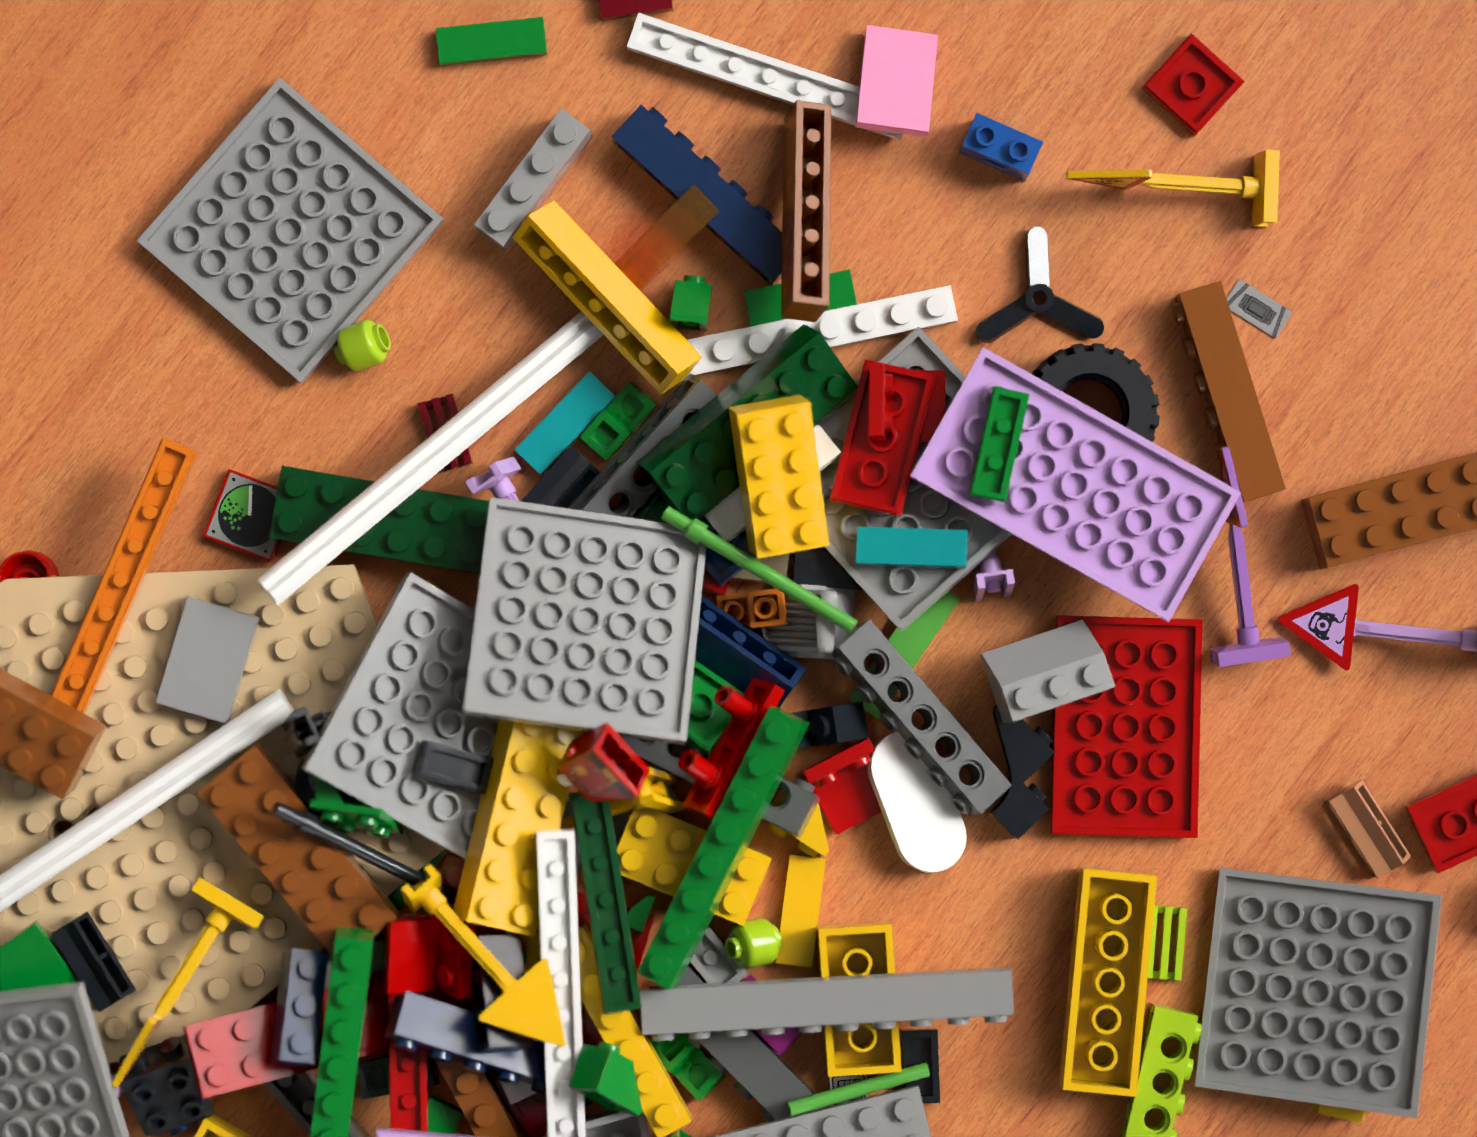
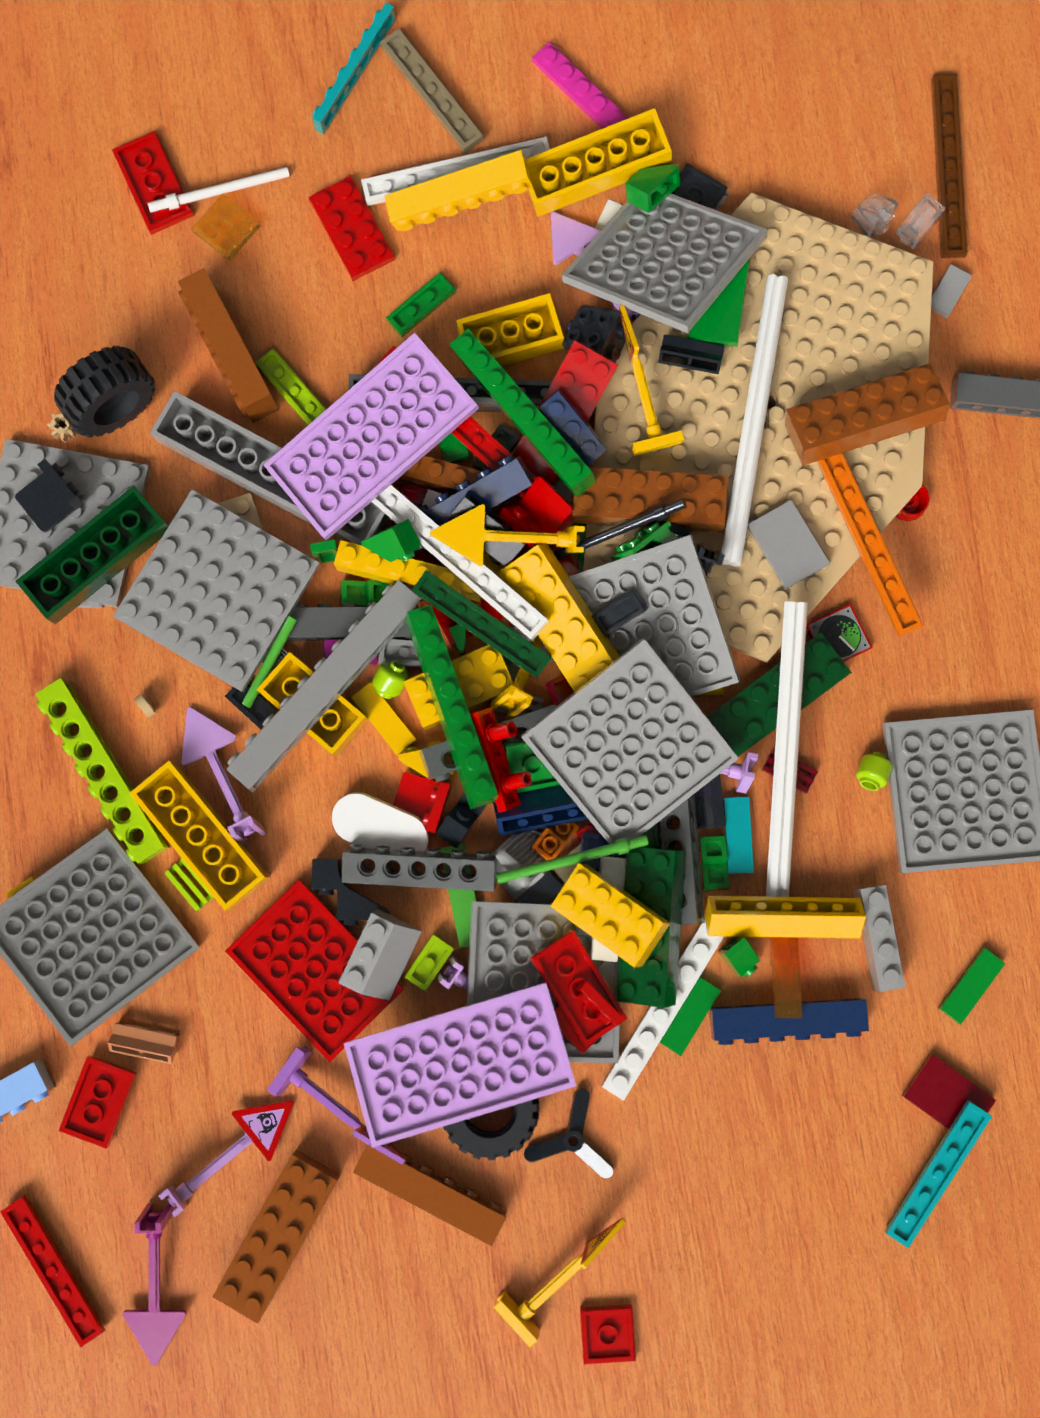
camera: 135 degrees right, 5 degrees down
(602, 766) = (548, 683): red torso -> none
(744, 68) = (820, 1112): white plate -> none
(806, 211) = (733, 1062): dark orange brick -> none
(896, 81) = (756, 1177): bright pink tile -> none
(912, 547) = (508, 948): teal tile -> none
(999, 444) = (518, 1044): green tile -> none
(1001, 147) = (670, 1198): blue brick -> none
(1004, 615) = (429, 962): none -> lime plate
(1005, 1079) = (203, 739): none -> lavender piece
(1258, 308) = (458, 1251): sticker -> none

